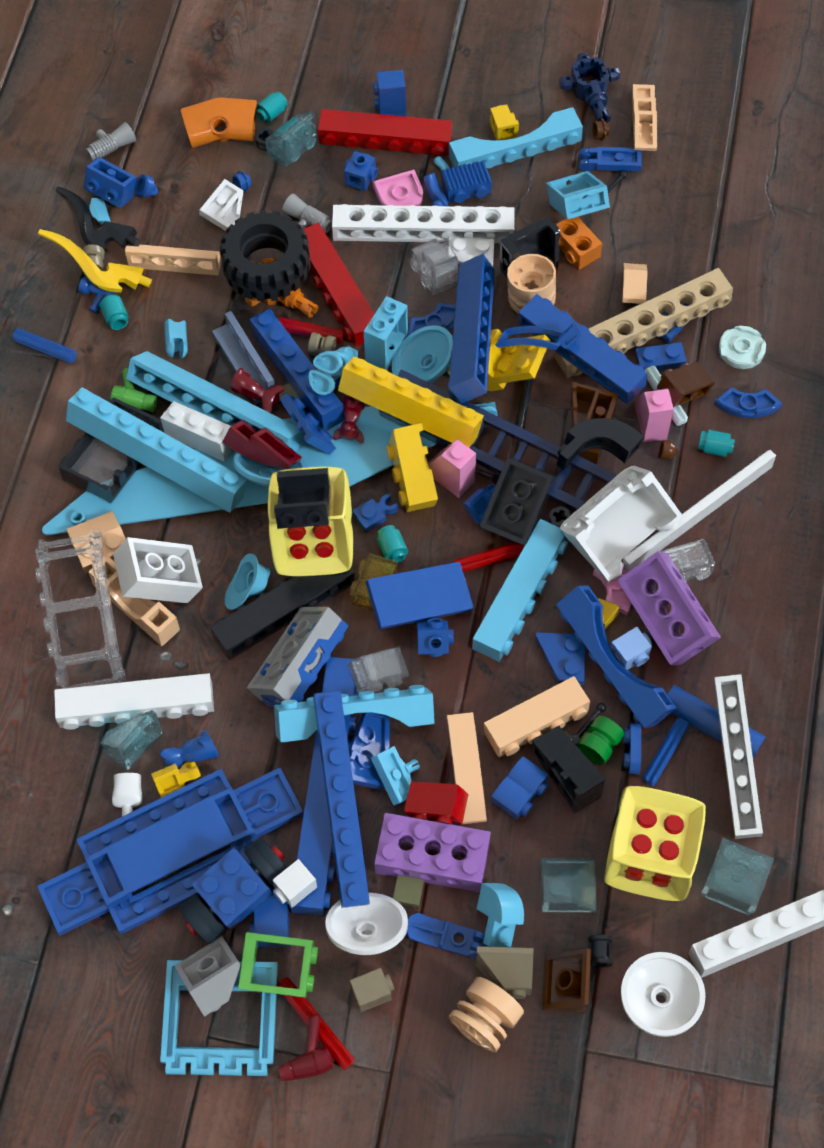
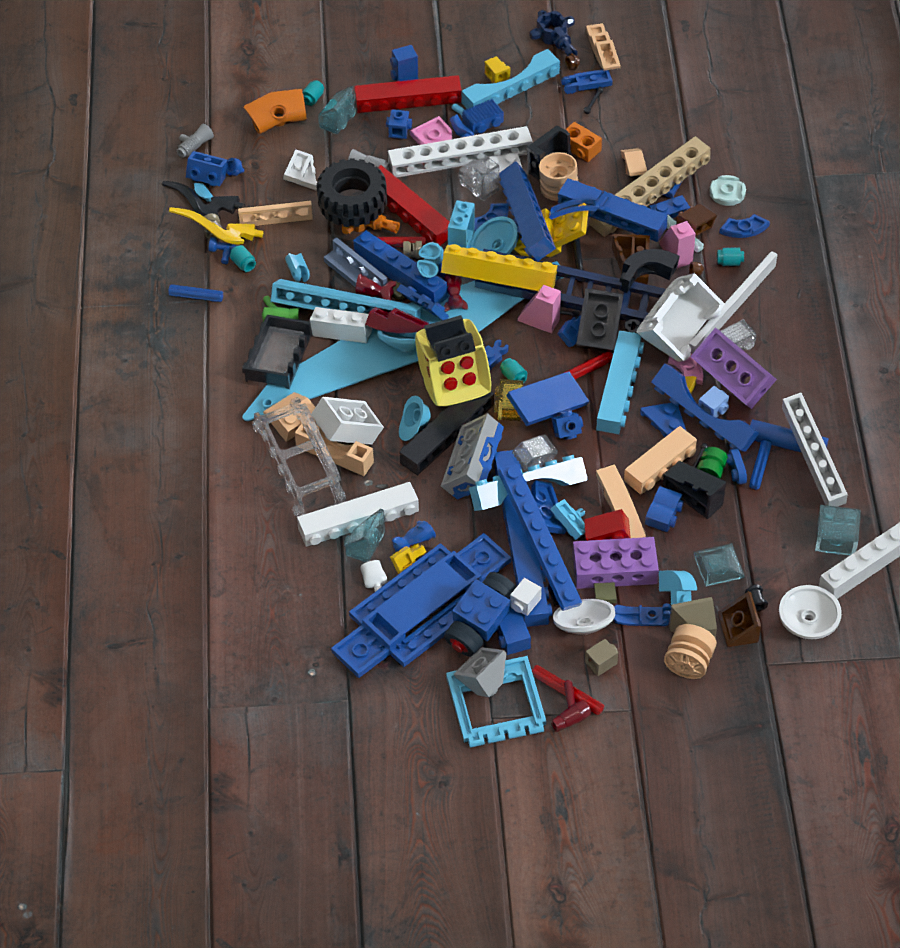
camera: 15 degrees left, 10 degrees down
(156, 450) = (315, 340): medium azure brick -> none
(241, 180) = (308, 147): blue plate -> none
(249, 959) = (514, 671): bright green window -> none
(260, 135) = (311, 114): black bush -> none
(411, 468) = (511, 315): yellow wedge -> none
(569, 200) = (574, 108): medium azure window -> none
(655, 843) = (774, 516): light yellow piece -> none

